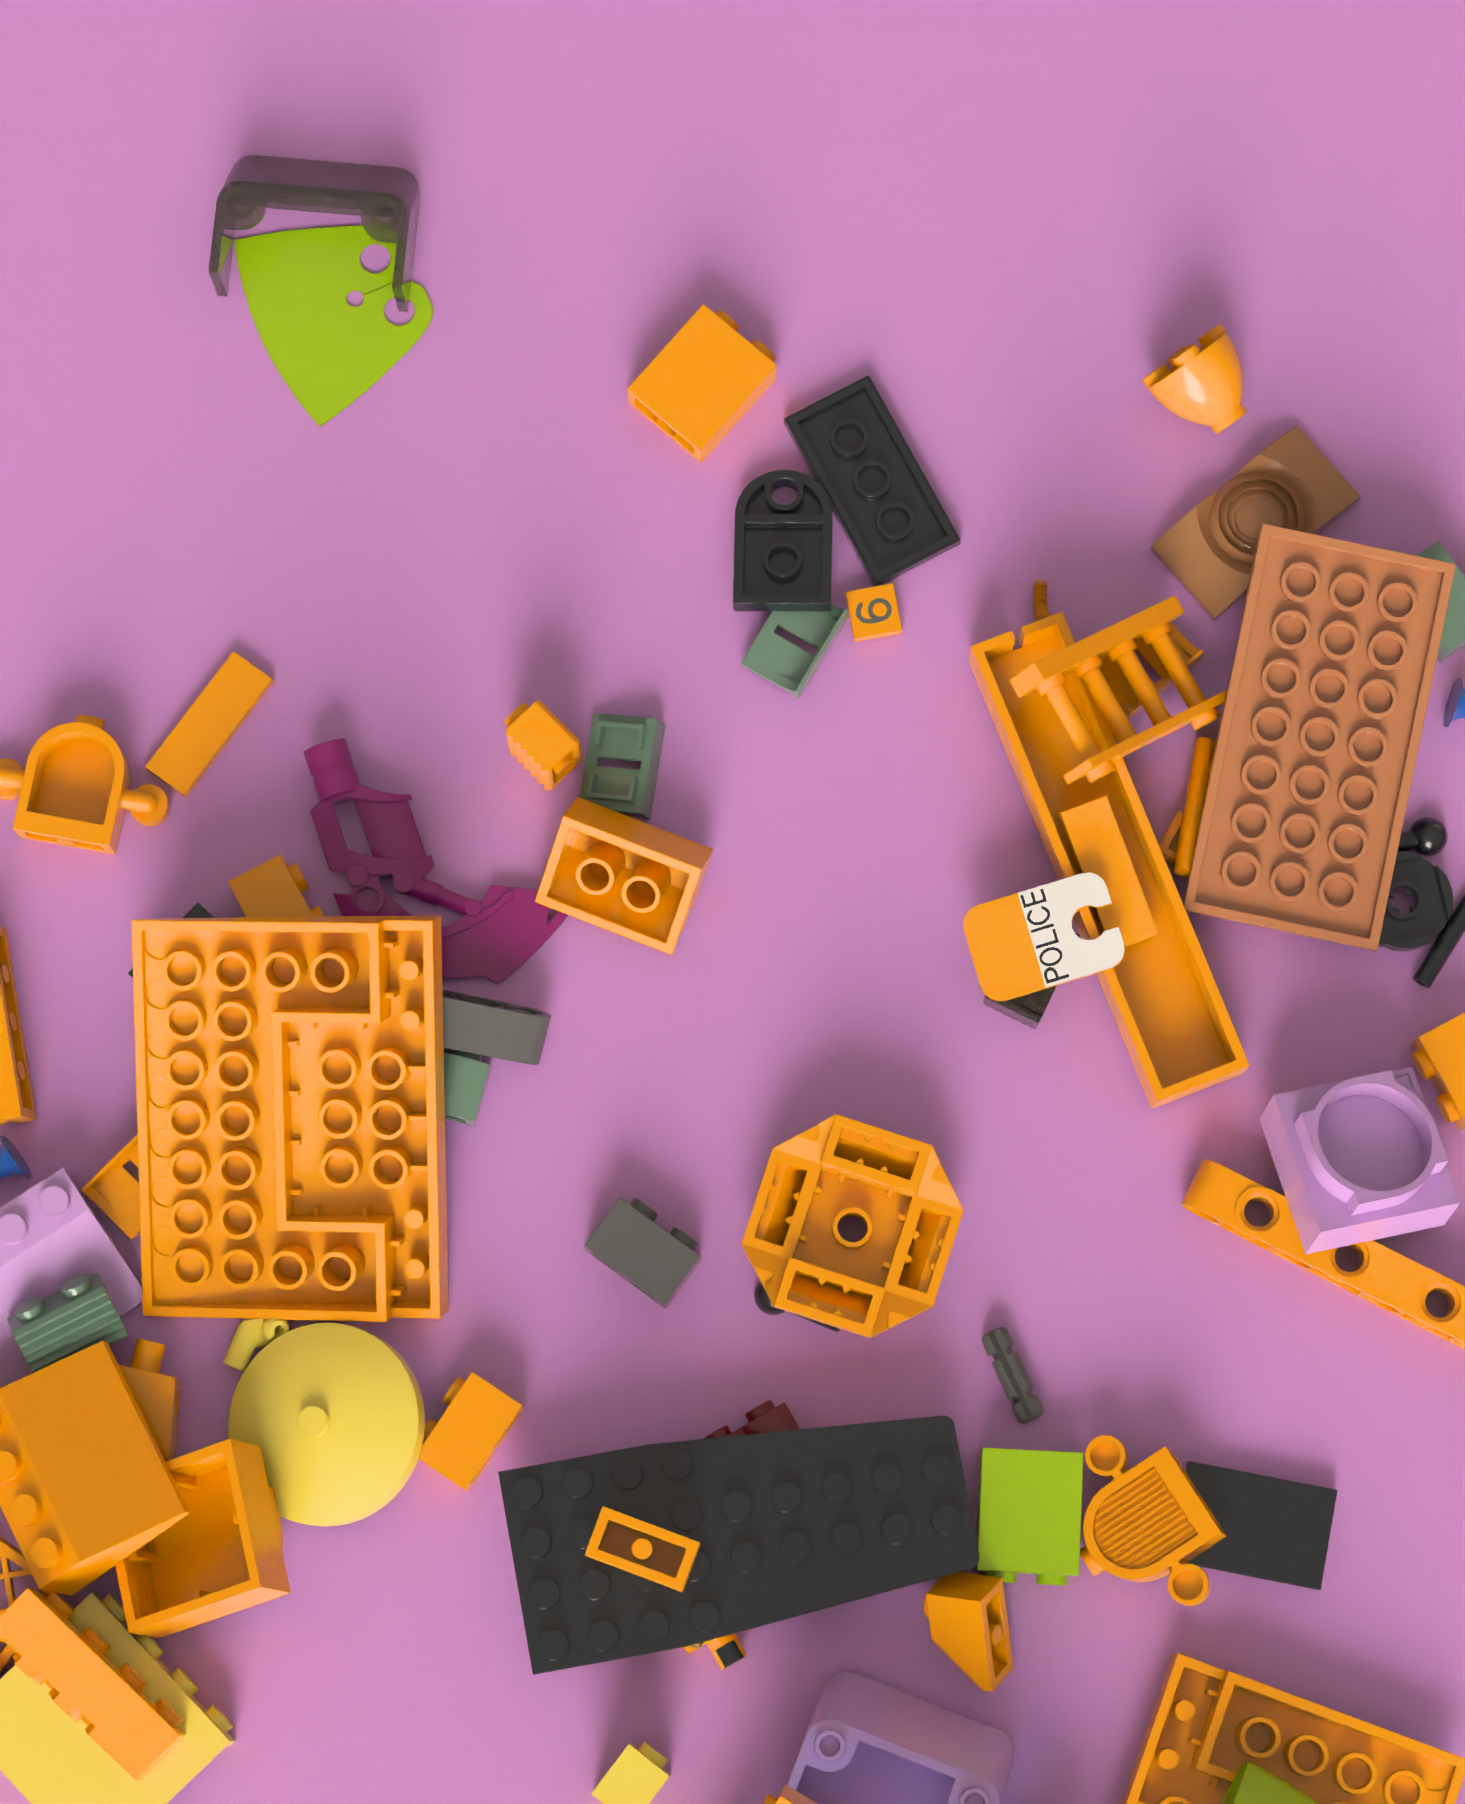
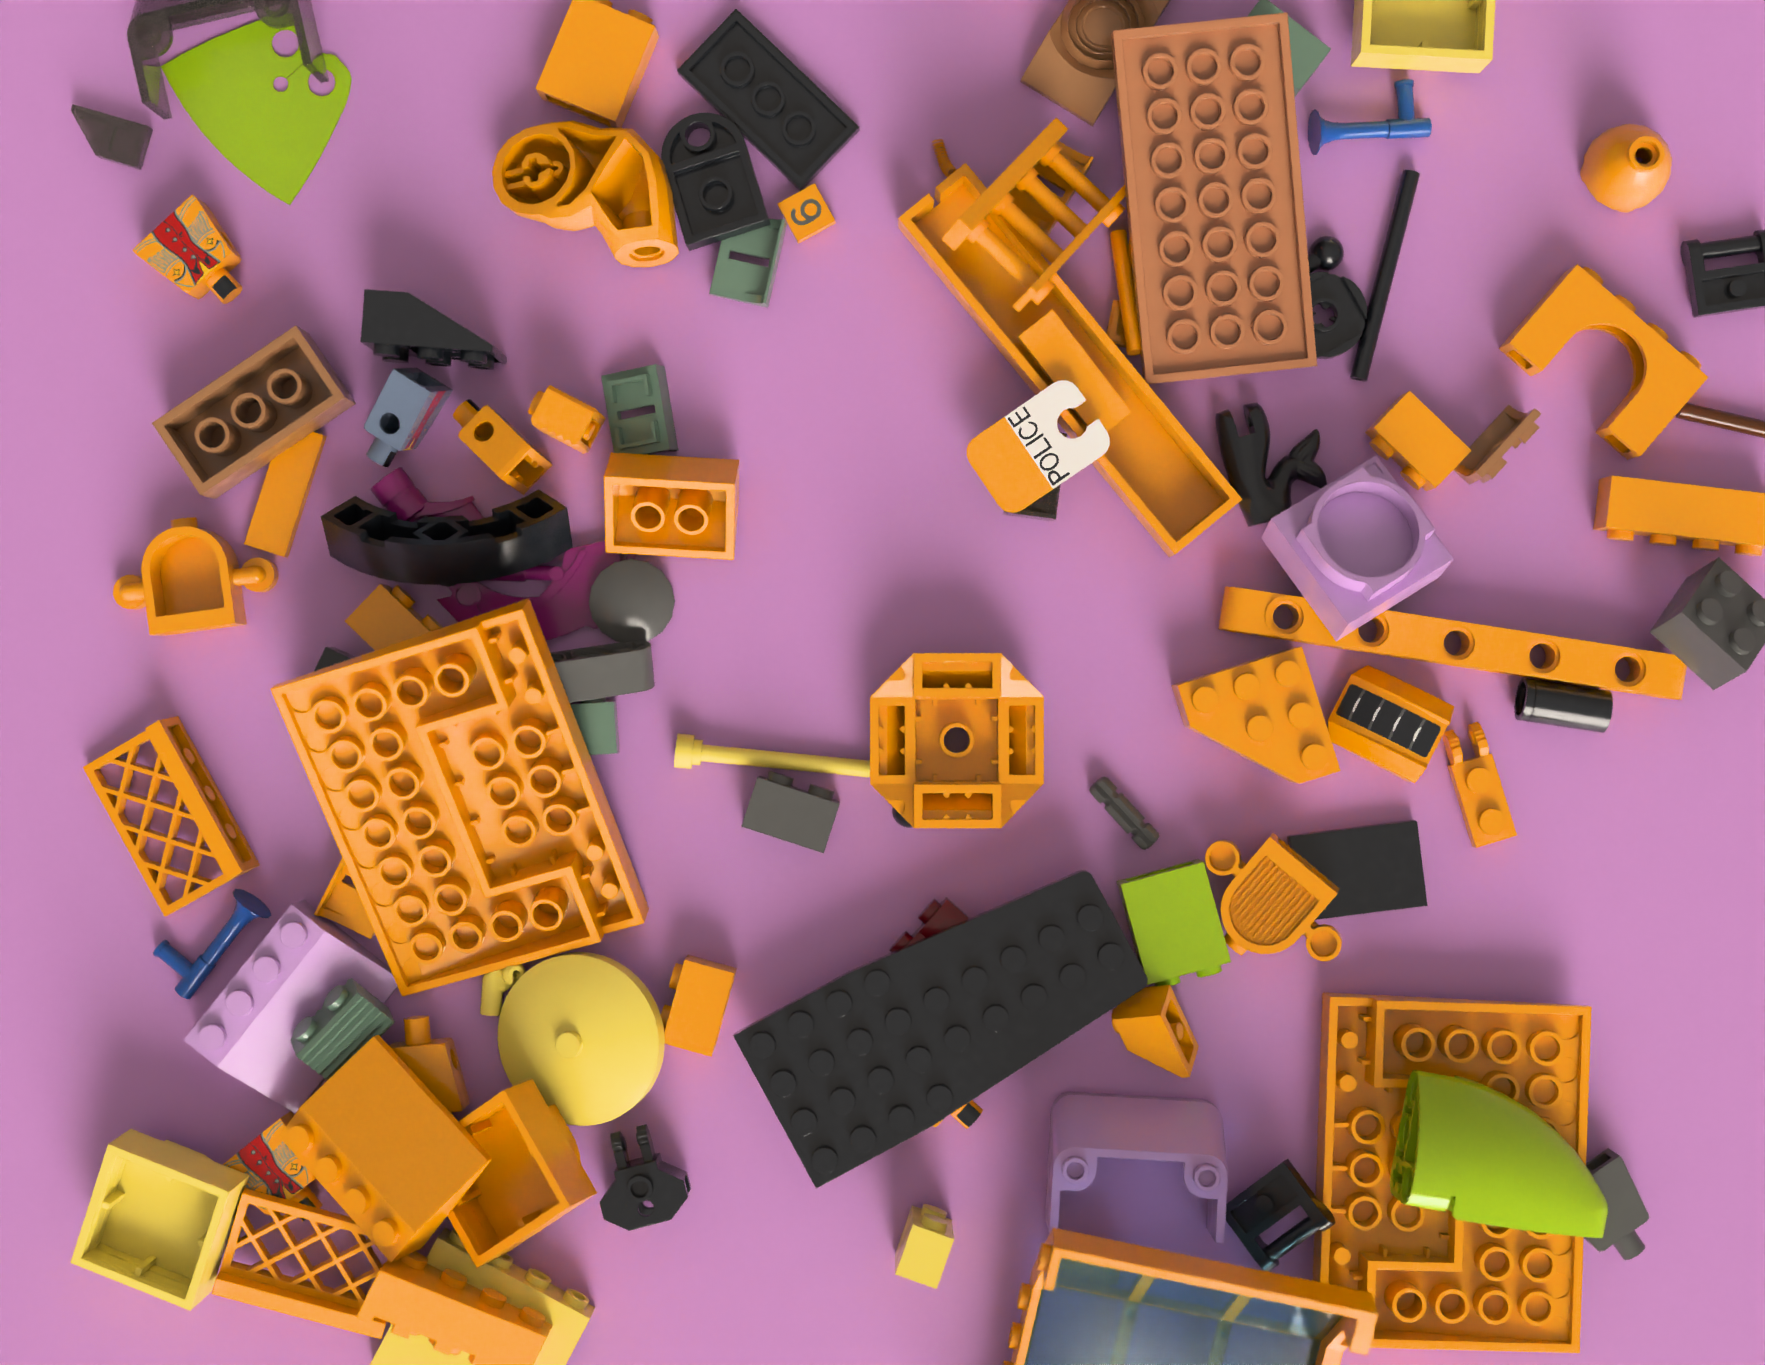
camera: 20 degrees left, 10 degrees up
(159, 297) = (114, 137): none -> clear smoke tile
(201, 443) = (193, 252): none -> torso
(208, 630) = (253, 413): none -> medium nougat brick
(339, 1605) = (642, 1181): none -> black hinge
(369, 838) = (448, 547): none -> black brick
(386, 676) = (412, 399): none -> sand blue torso
(407, 593) = (405, 326): none -> black slope
(461, 751) = (500, 446): none -> light orange torso
(545, 964) = (631, 601): none -> dark grey dish
(557, 1150) = (693, 751): none -> light yellow piece
(642, 1549) = (872, 1068): light orange brick -> none
(655, 501) = (590, 178): none -> light orange piece
(1200, 1313) = (1263, 714): none -> light orange brick
(1268, 1031) = (1247, 460): none -> black piece
(1337, 1369) = (1389, 722): none -> light orange slope
(1418, 1479) = (1478, 789): none -> light orange hinge

